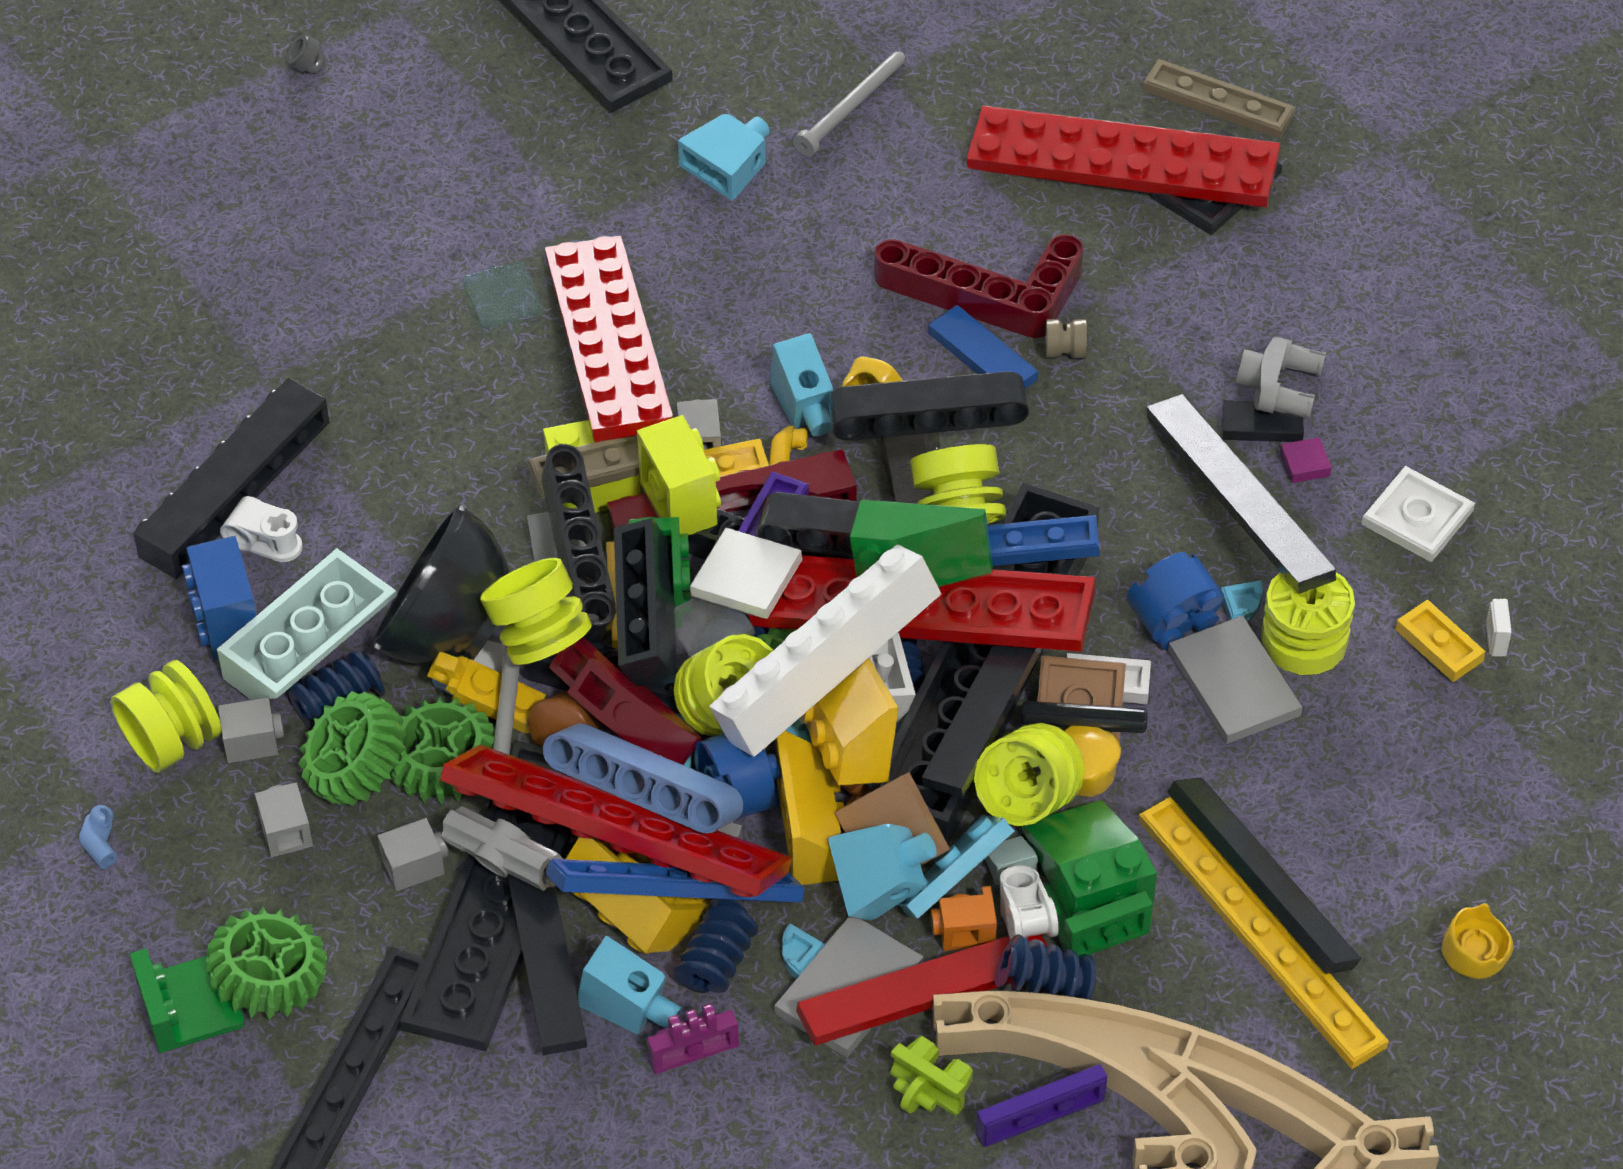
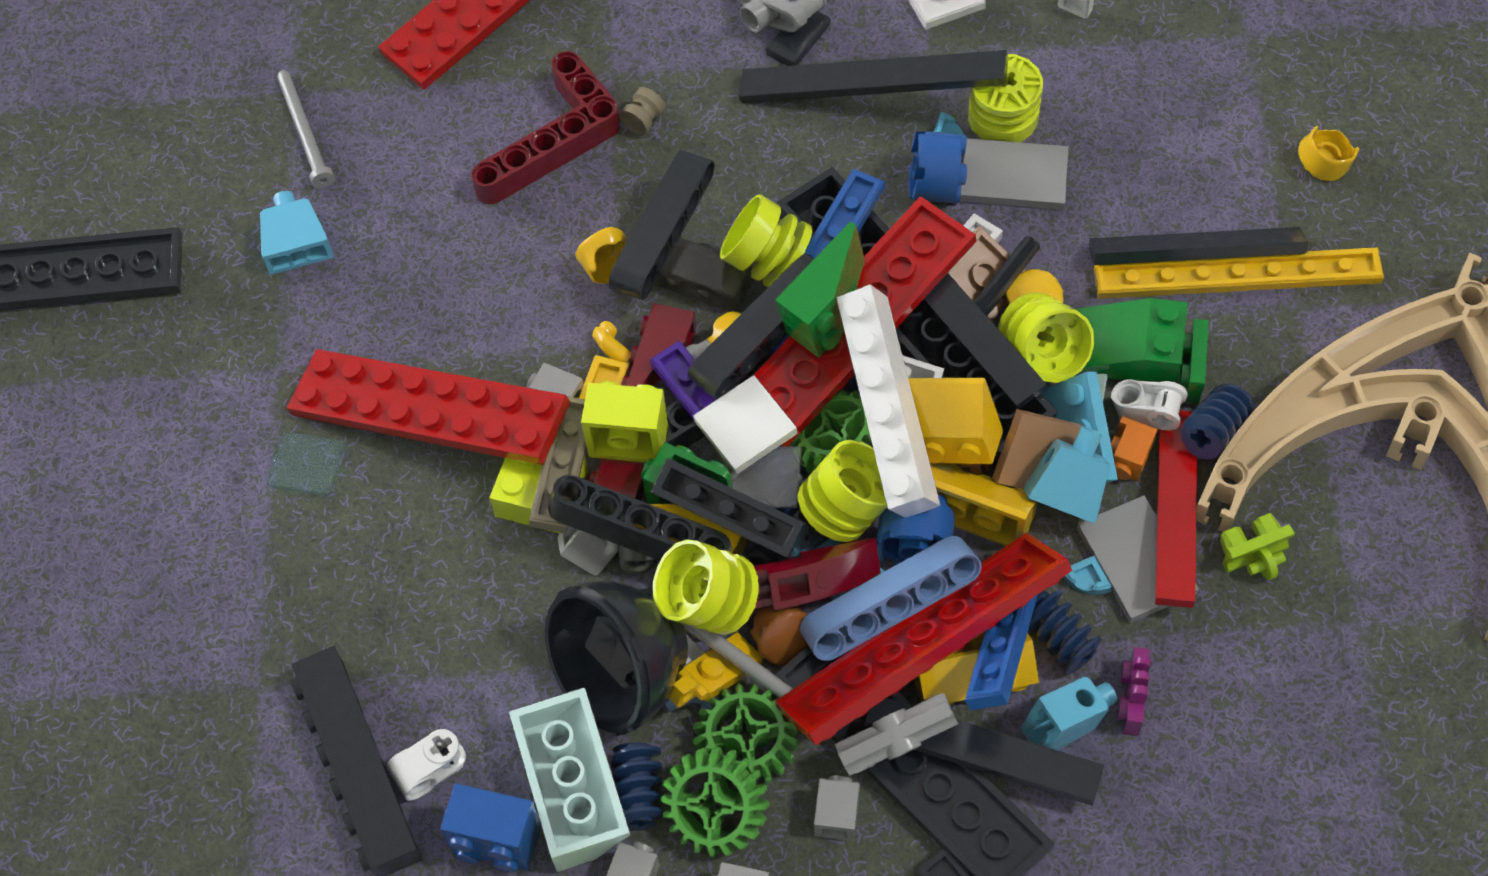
camera: 55 degrees left, 10 degrees up
(801, 383) = (570, 299): medium azure torso -> none
(978, 346) = (610, 170): blue tile -> none
(1041, 1105) = (1321, 486): dark purple tile -> none
(1305, 460) = (850, 30): magenta tile -> none
(1440, 640) = (1062, 37): yellow plate -> none

